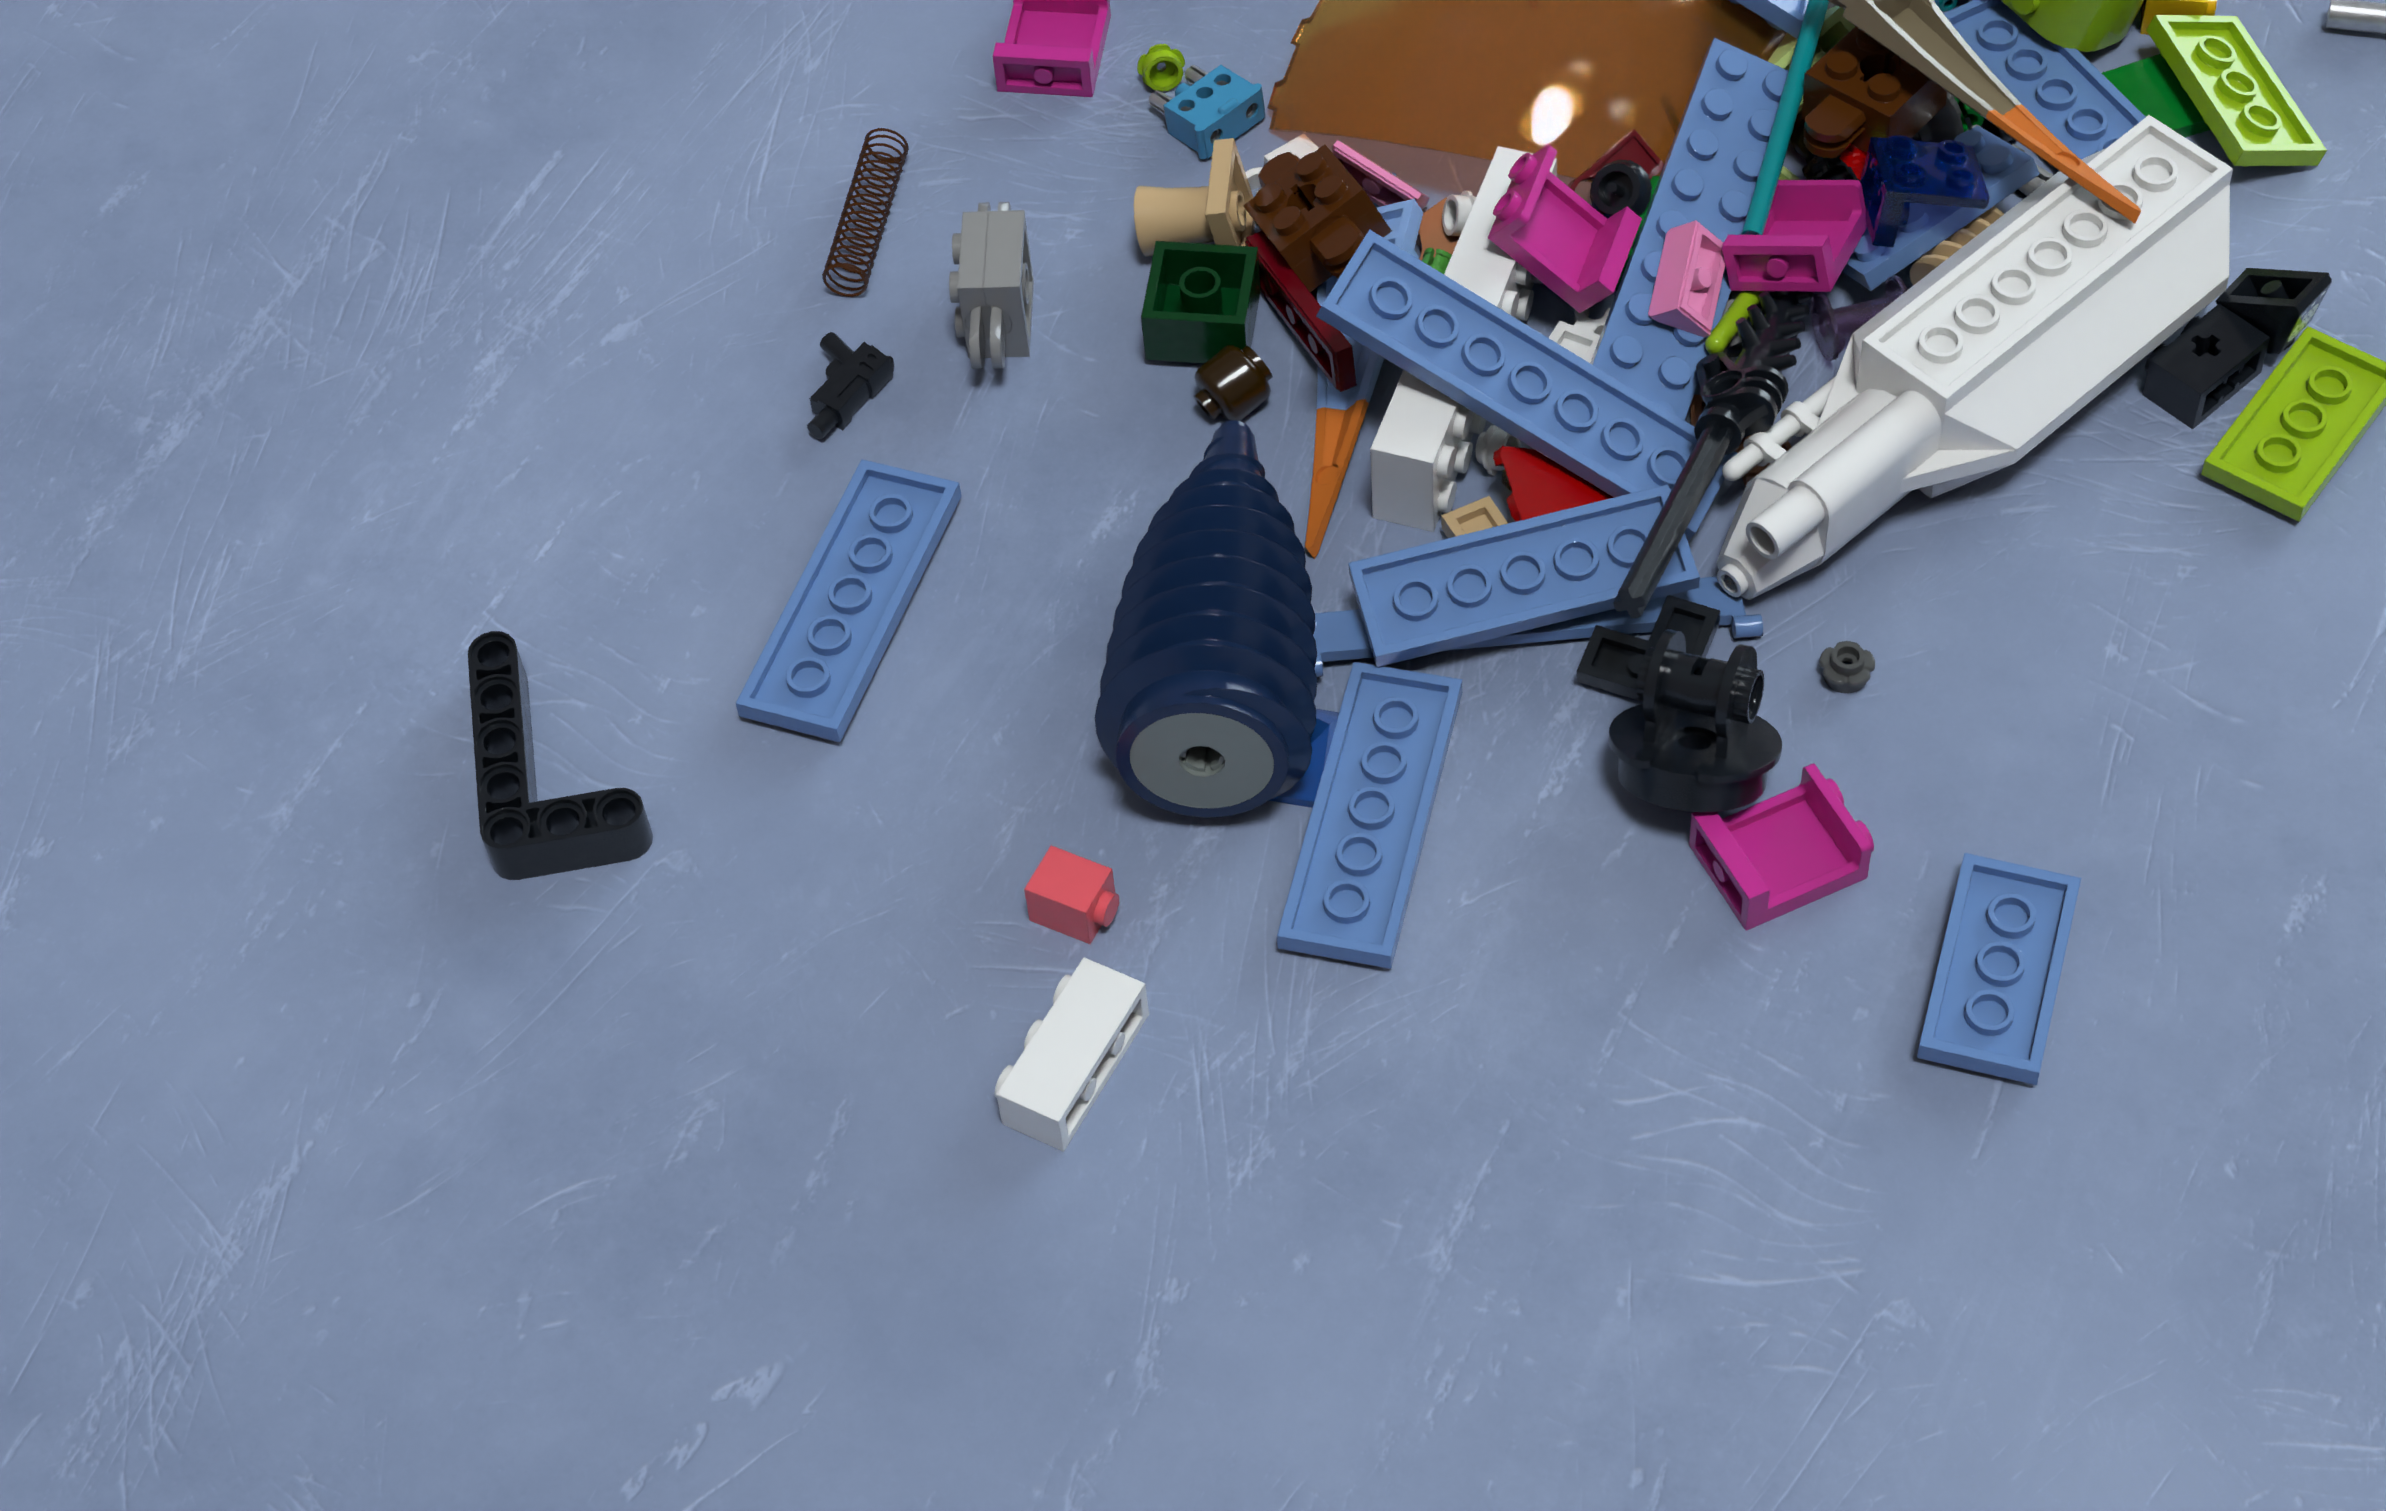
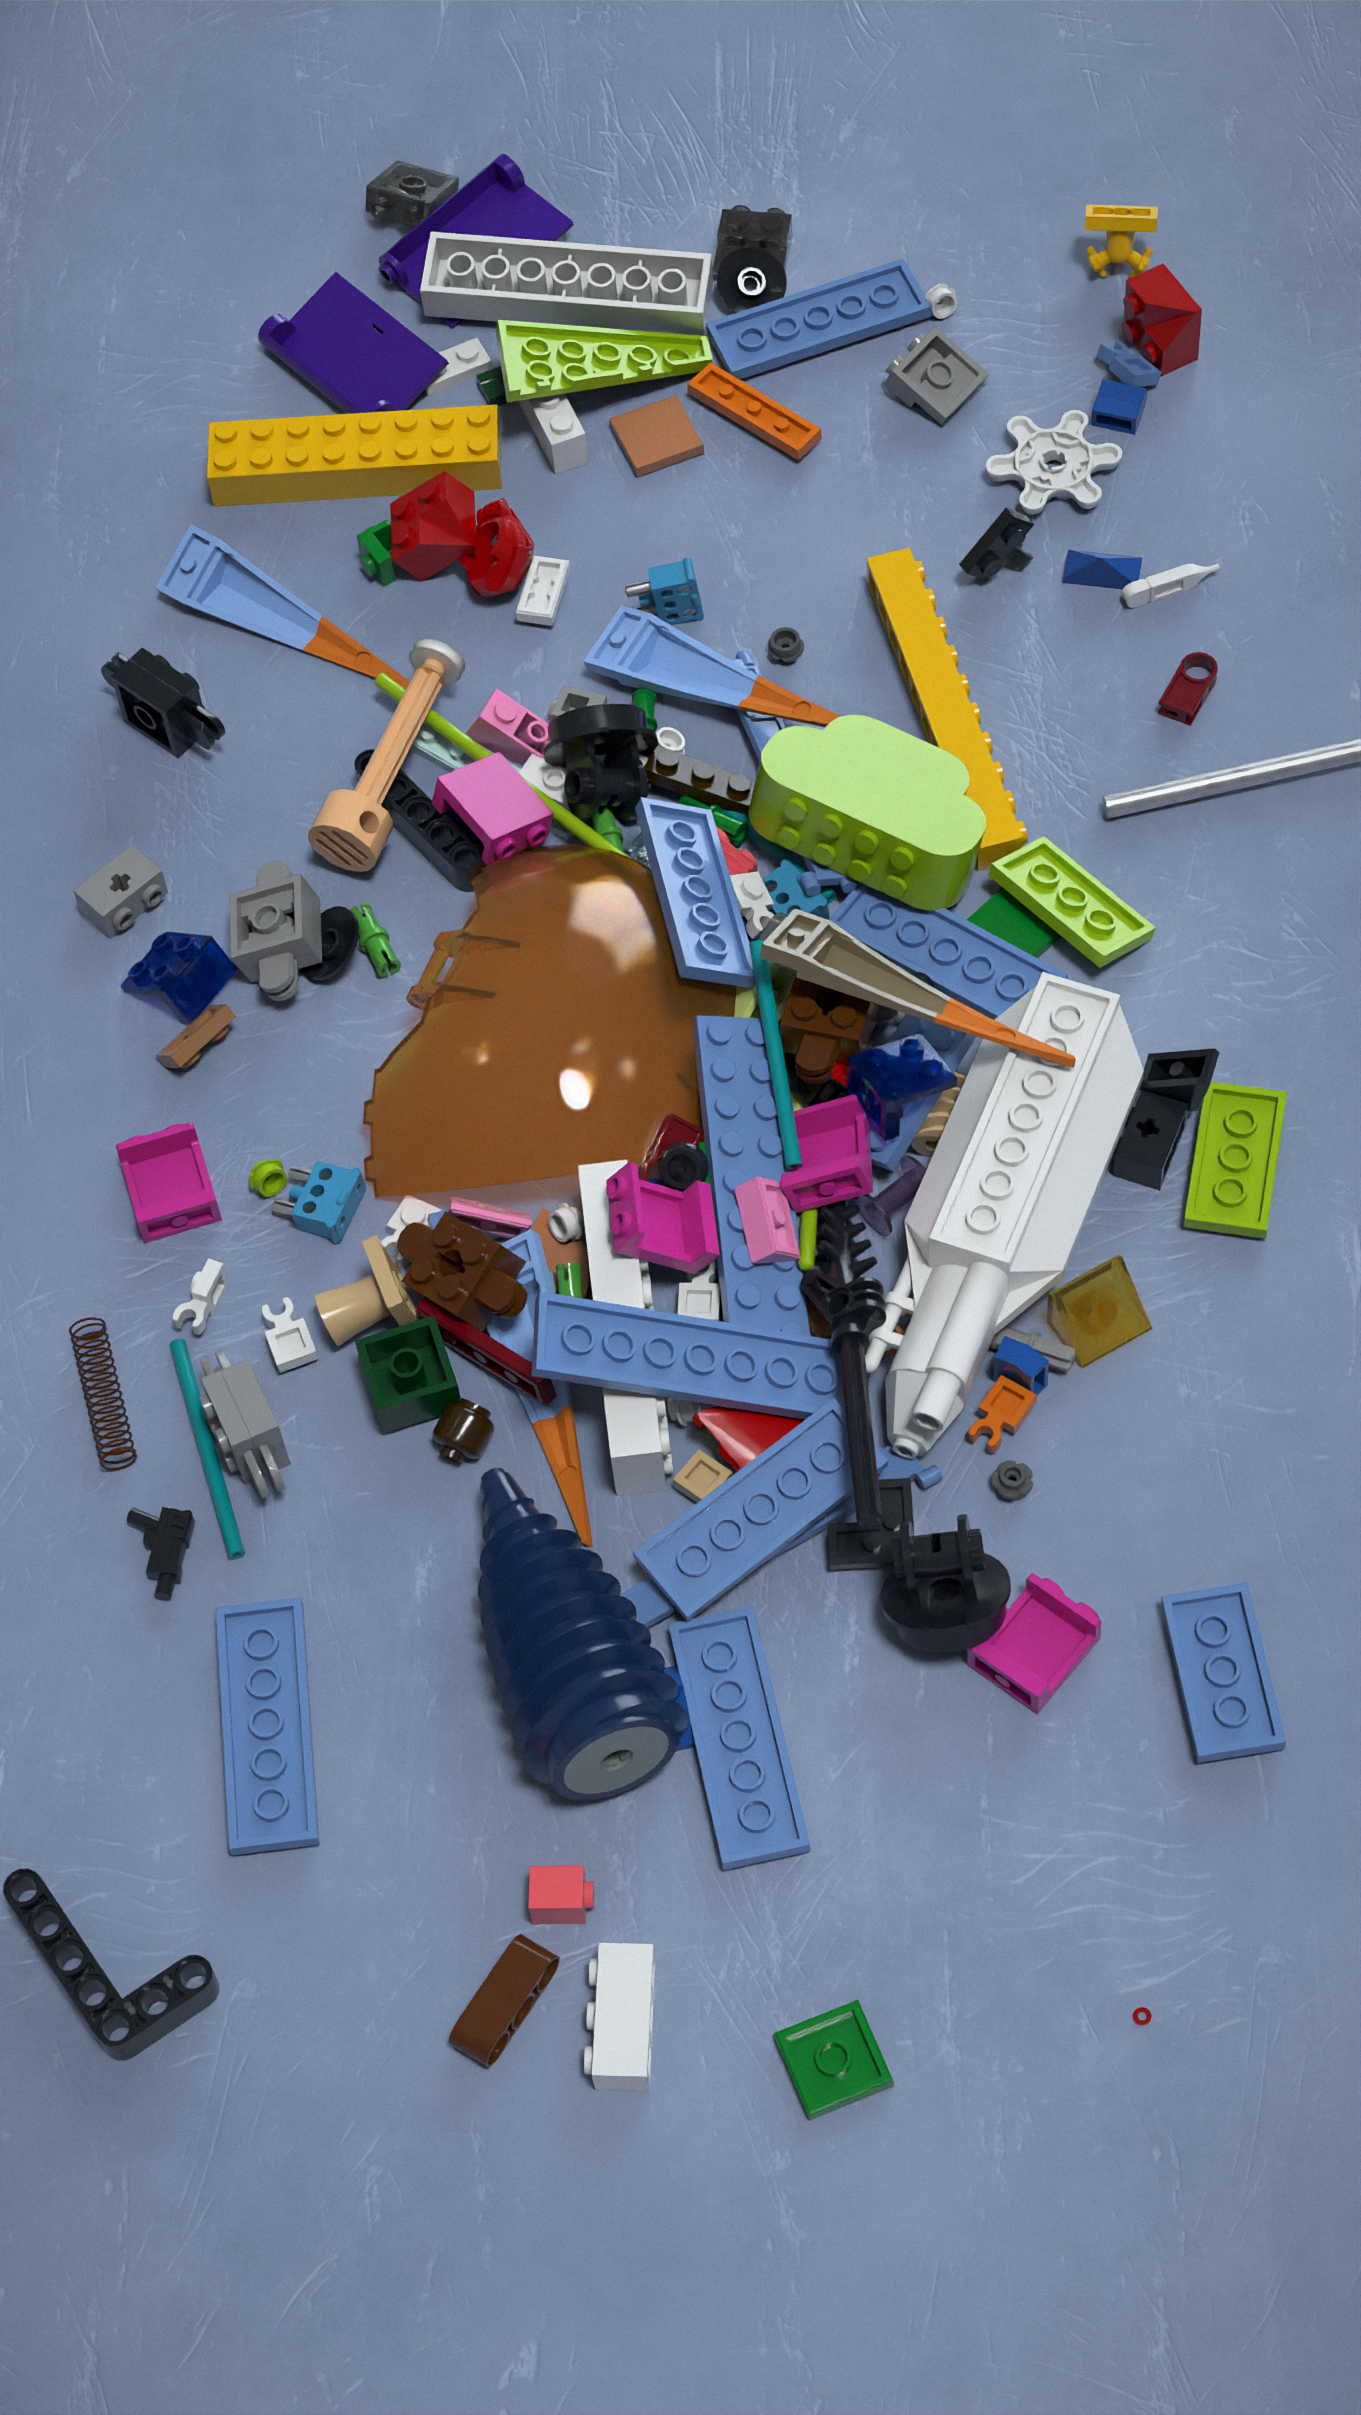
camera: 25 degrees left, 5 degrees up
(940, 332) = (207, 1450): none -> teal piece
(948, 981) = (504, 2000): none -> reddish brown beam
(1032, 155) = (207, 1291): none -> white plate
(1094, 230) = (288, 1338): none -> white plate
(1295, 1205) = (833, 2060): none -> green tile
(1697, 1322) = (1139, 2010): none -> red piece
(1873, 584) = (1003, 1408): none -> orange plate
(1917, 547) = (1021, 1365): none -> blue piece
(1945, 534) = (1058, 1355): none -> light grey axle
(2044, 519) = (1097, 1311): none -> clear yellow slope

